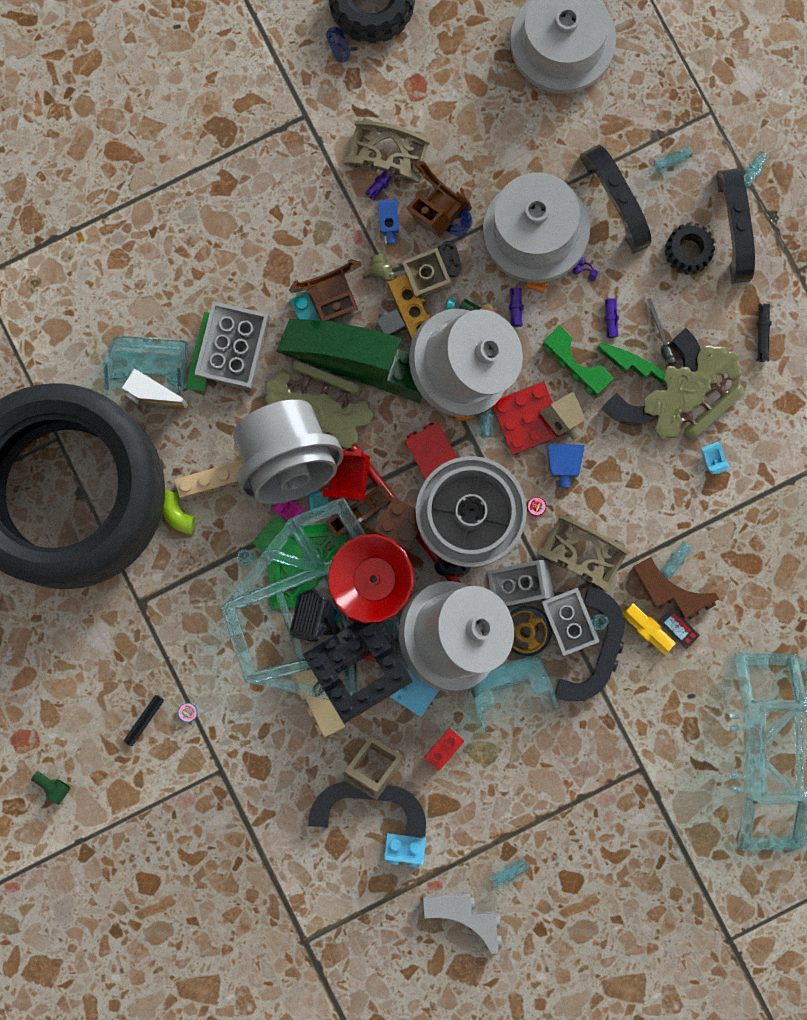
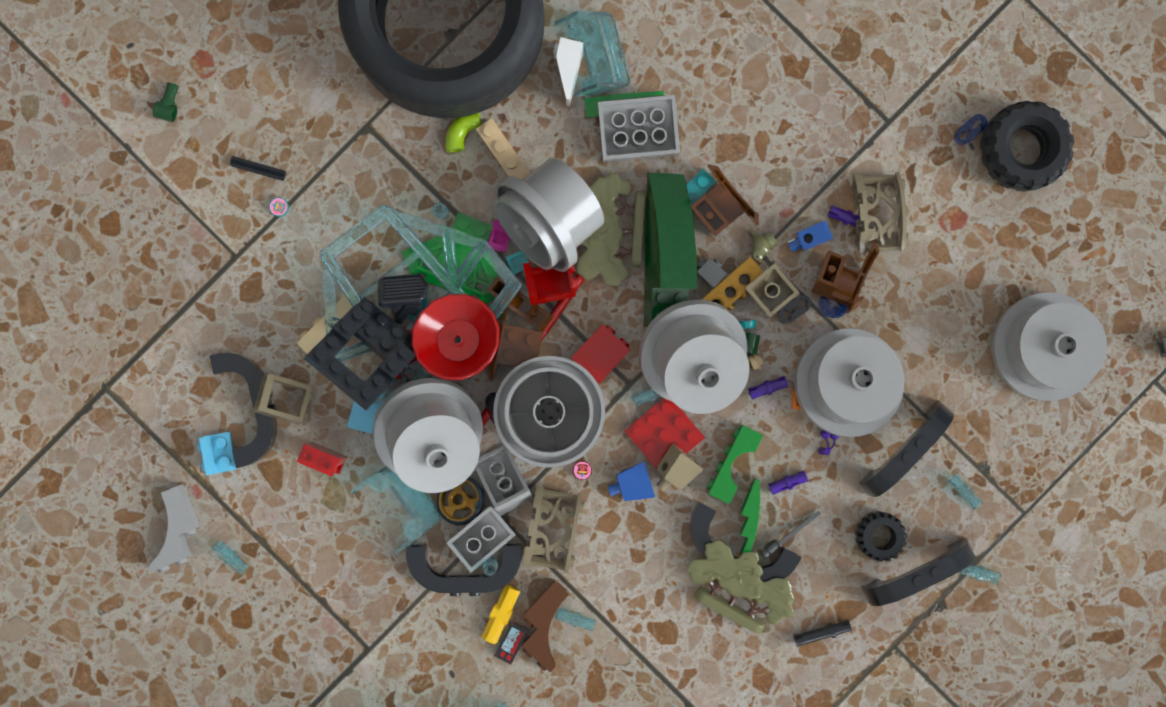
camera: 65 degrees right, 5 degrees up
(714, 458) = (684, 625): medium azure bracket -> none

